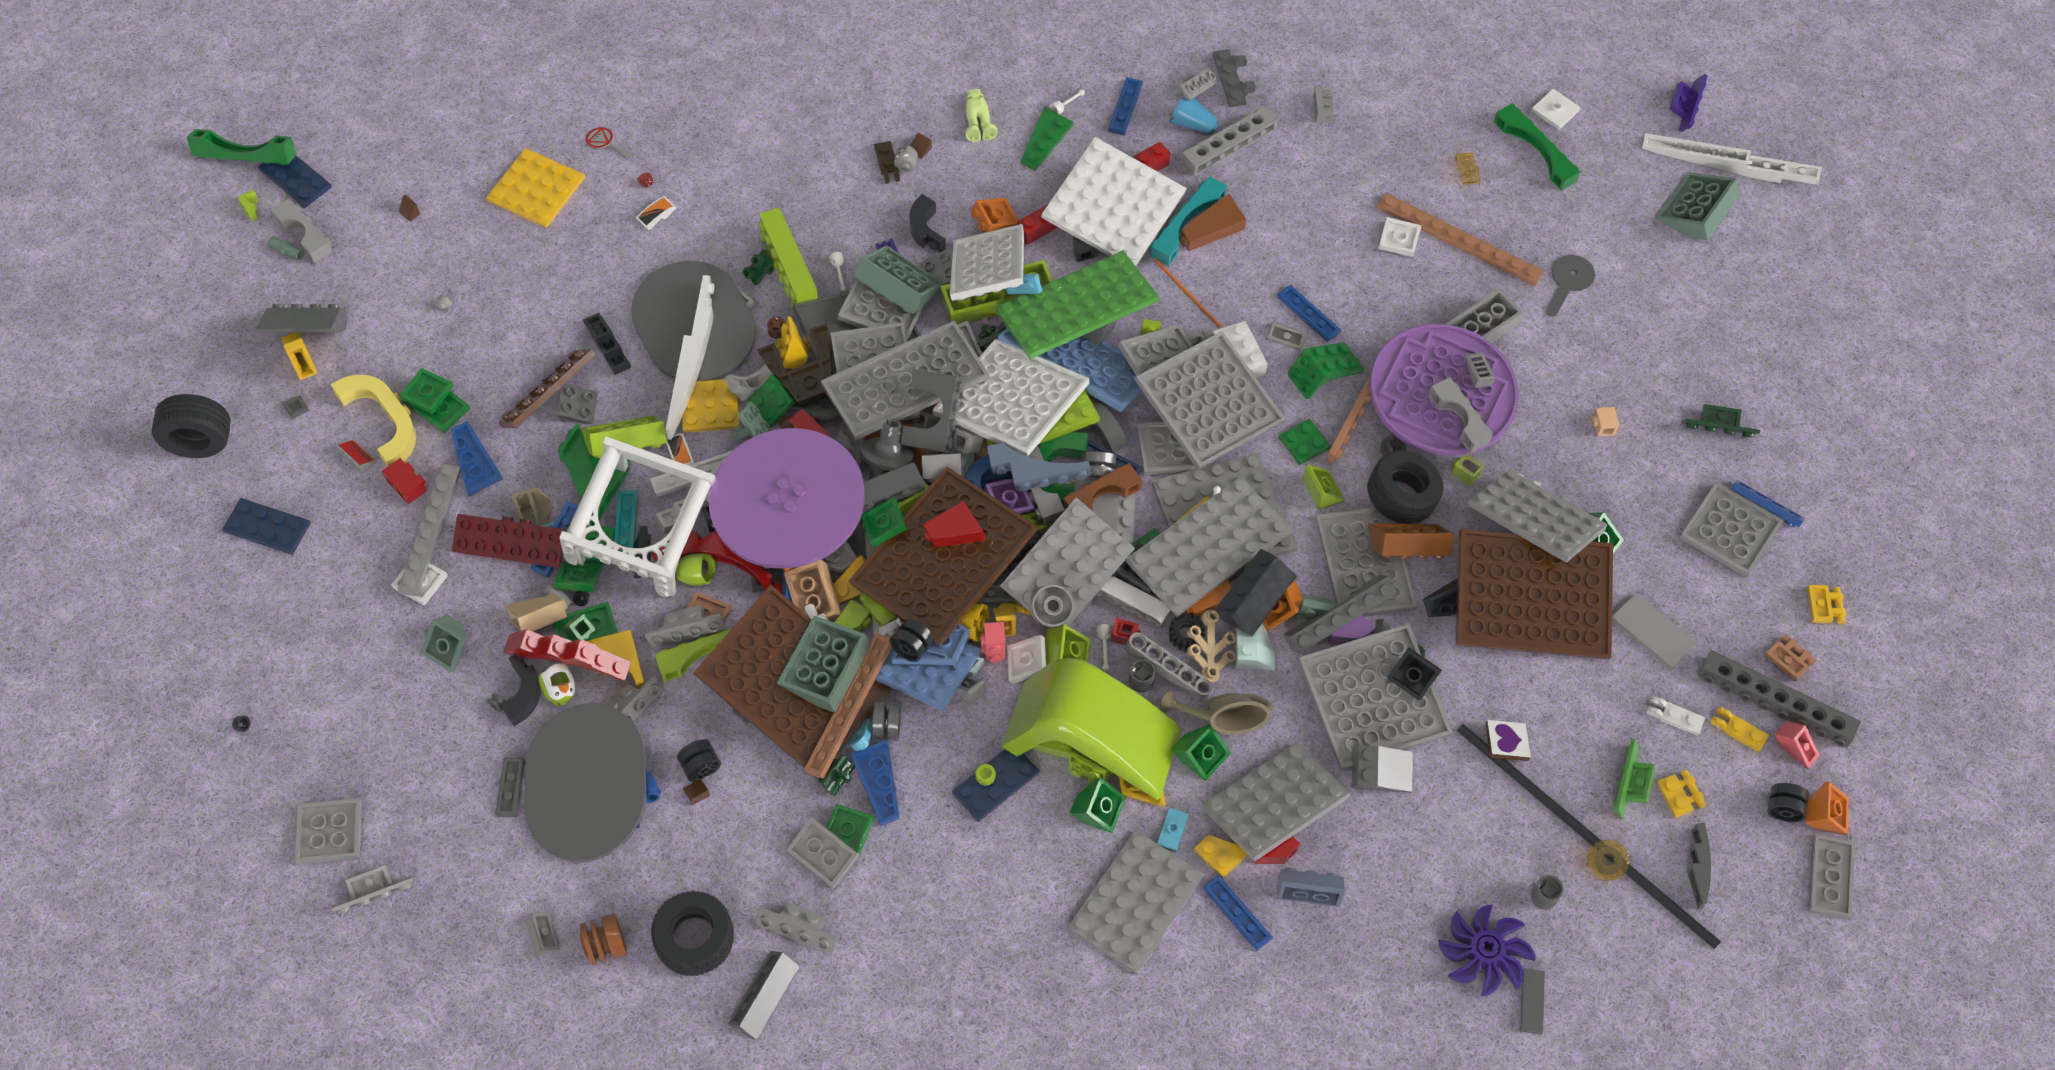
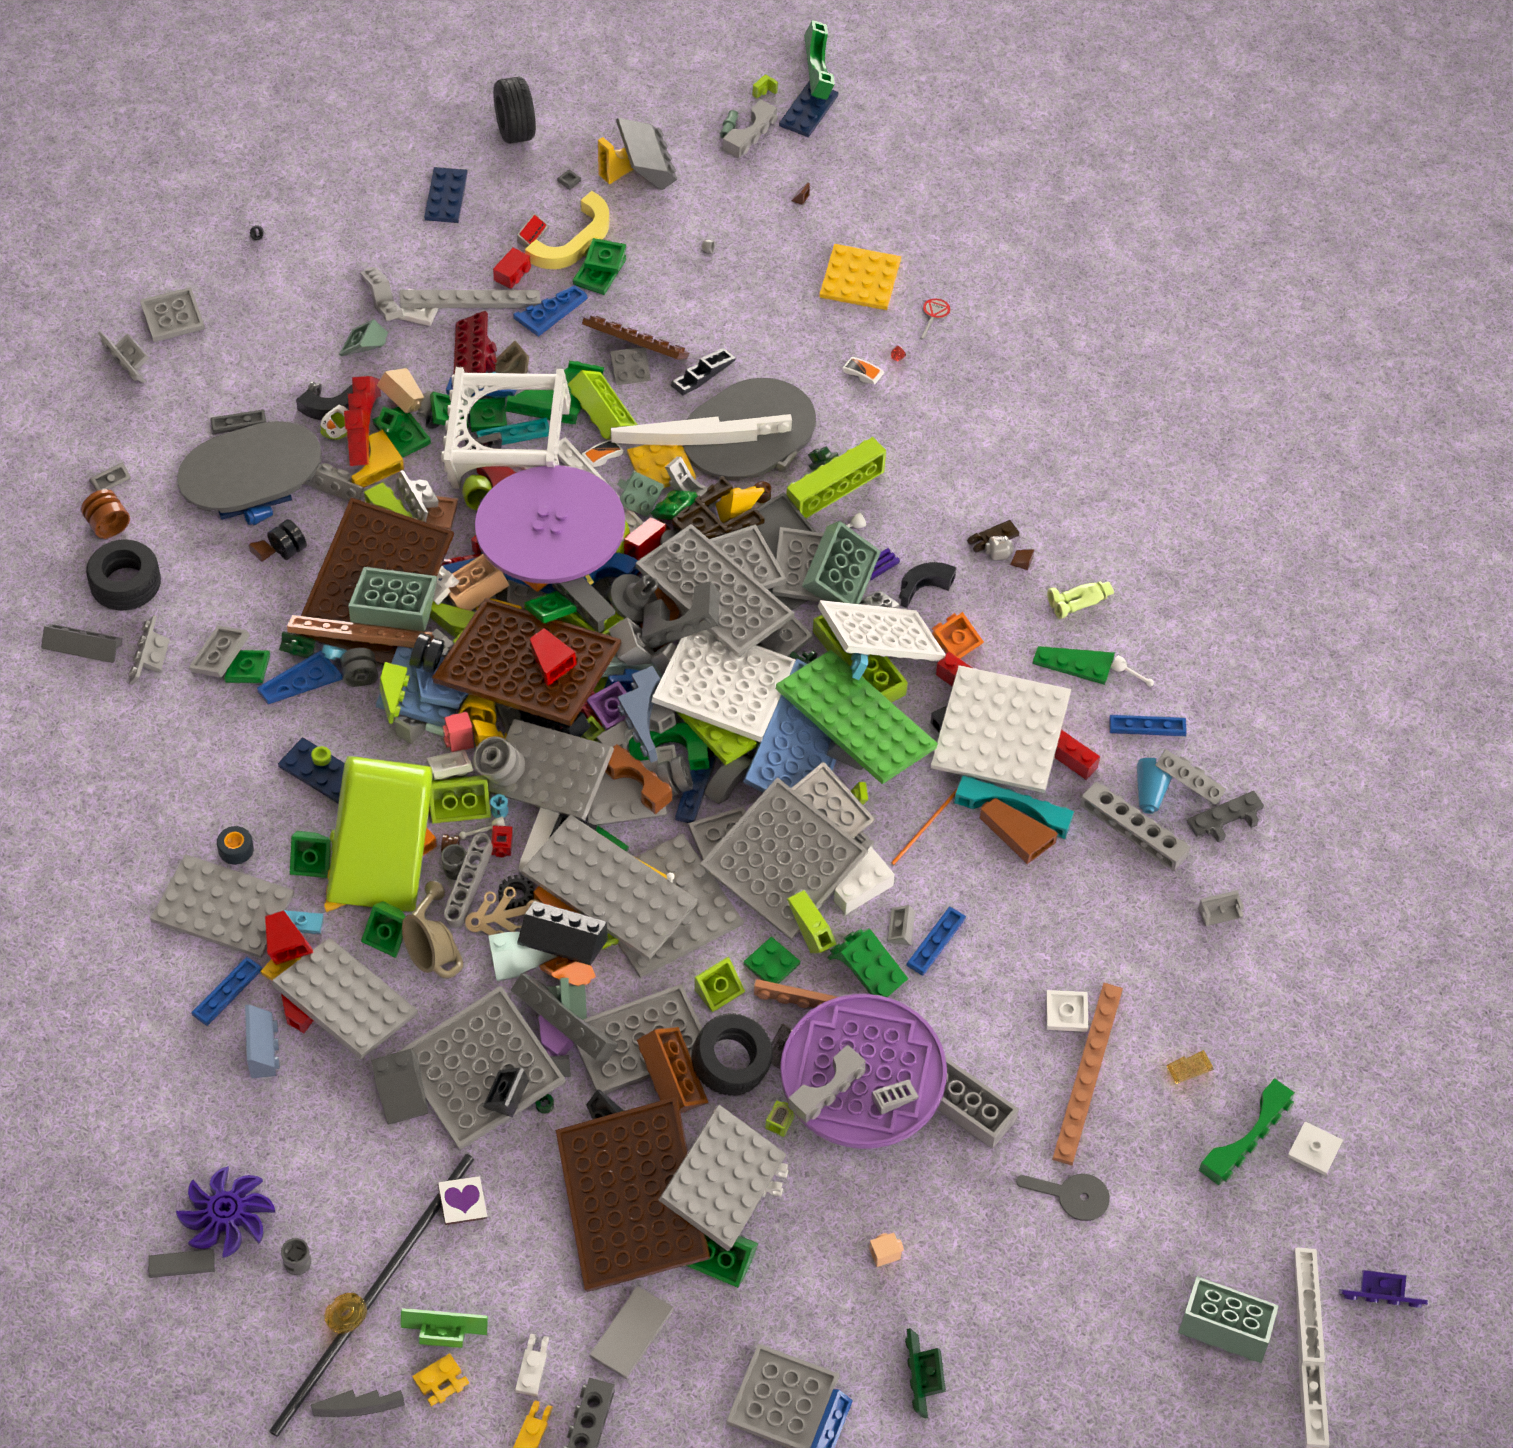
camera: 75 degrees right, 5 degrees down
(393, 609) = (381, 293): none -> light grey bracket
(854, 394) = (675, 551): none -> light grey plate
(939, 685) = (391, 688): none -> lime slope
(1075, 871) = (235, 845): none -> black wheel
(1088, 622) = (496, 805): none -> medium azure bush
(1119, 674) = (447, 840): none -> reddish brown wheel
(1200, 841) = (284, 939): none -> red slope
(1286, 395) = (811, 923): none -> lime slope

